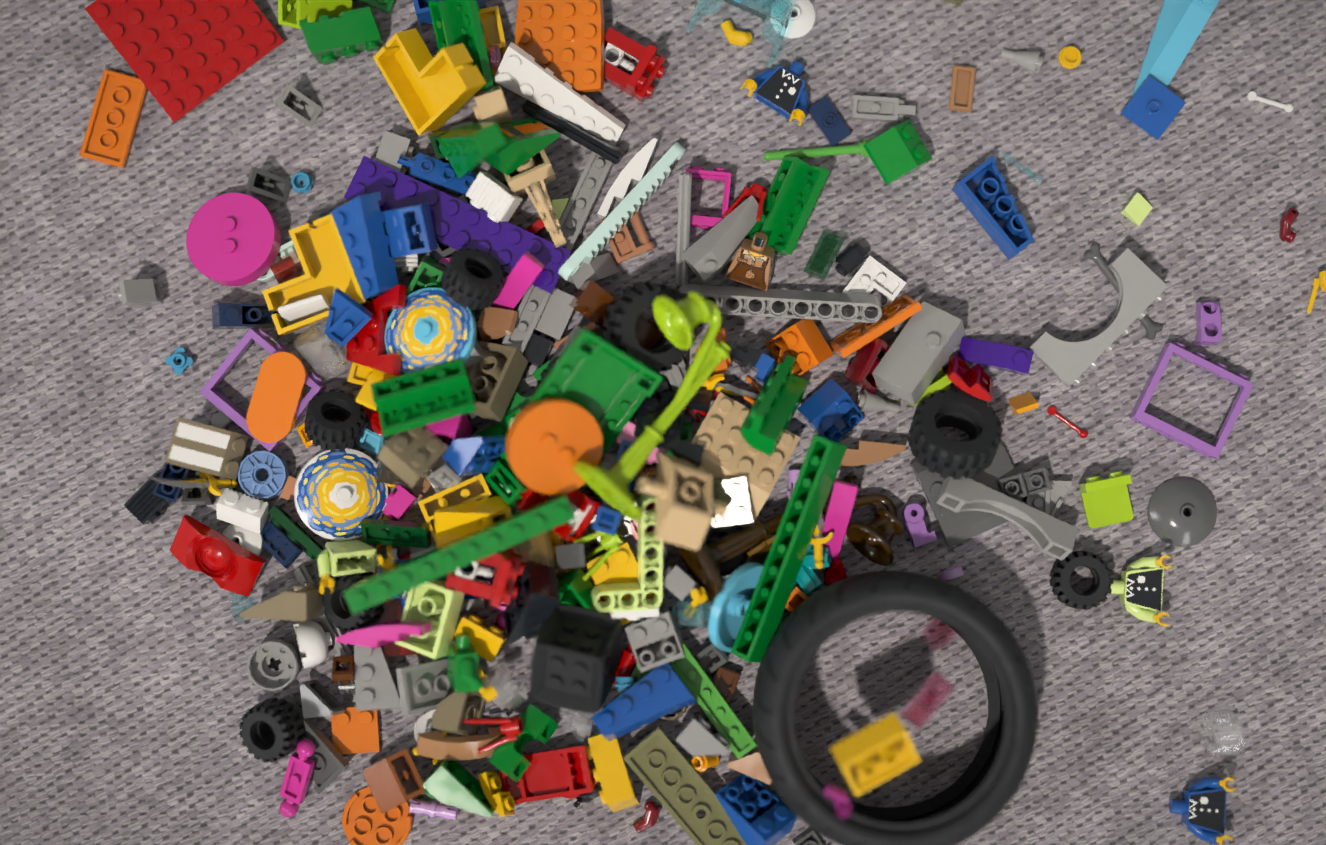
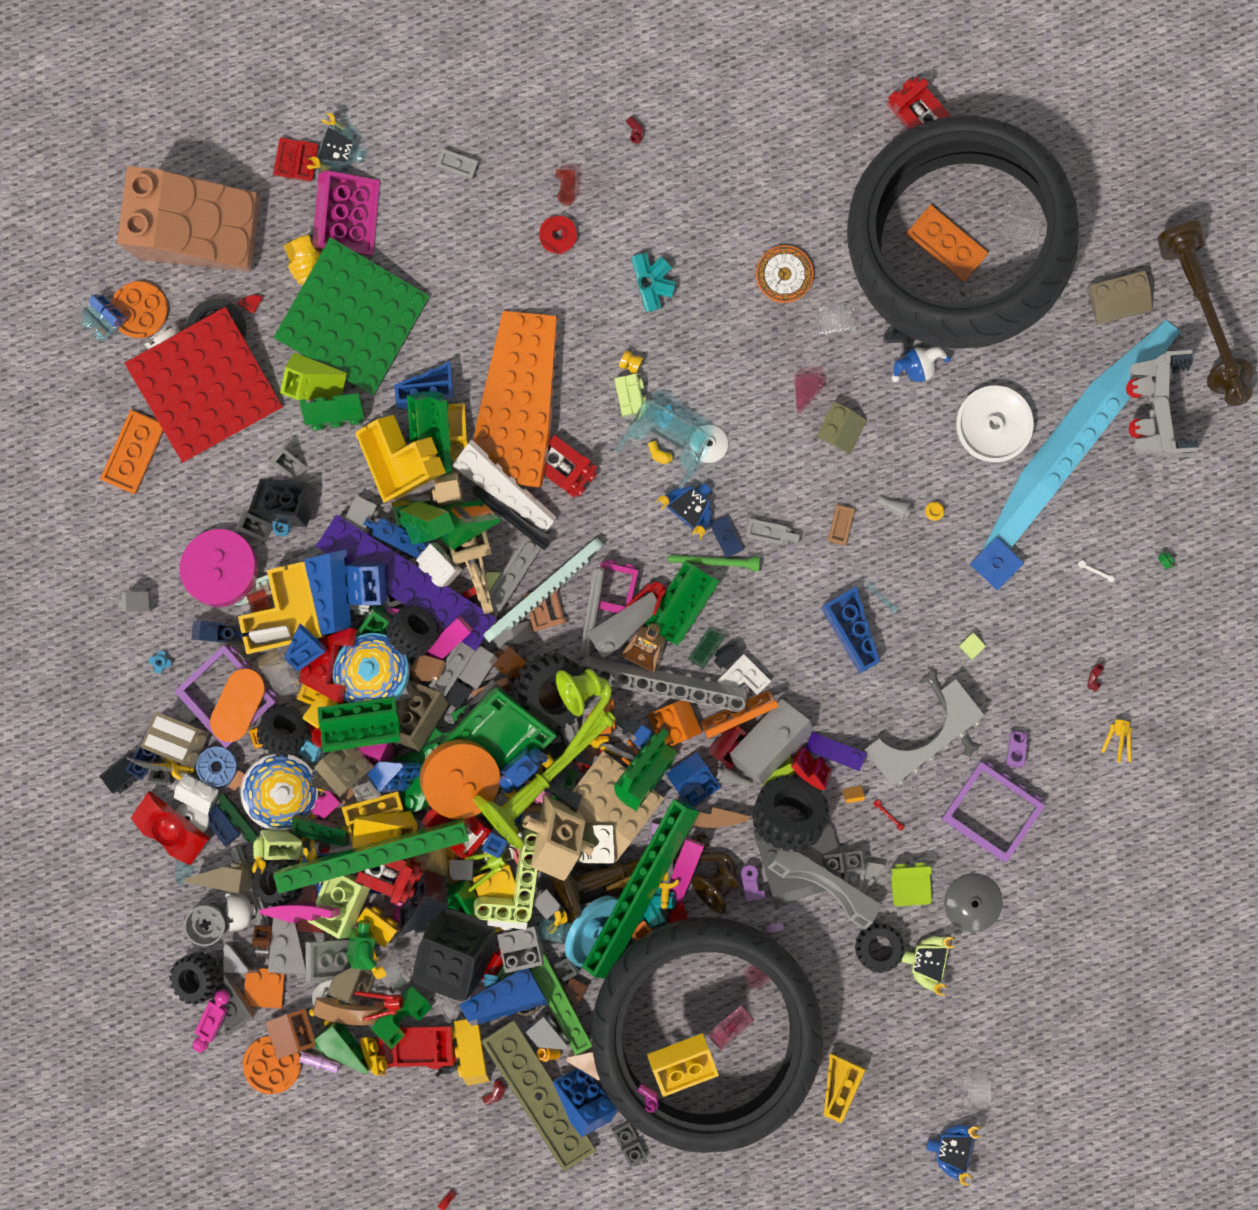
camera: 10 degrees right, 0 degrees up
(301, 150) = (284, 501): none -> black slope
(494, 56) = (455, 448): clear pink tile -> none
(516, 492) = (424, 812): green tile -> none
(626, 423) = (521, 768): none -> blue torso
(633, 172) = (557, 557): white slope -> none
(898, 152) = (778, 572): green slope -> none
(1060, 752) = (842, 1085): none -> yellow wedge

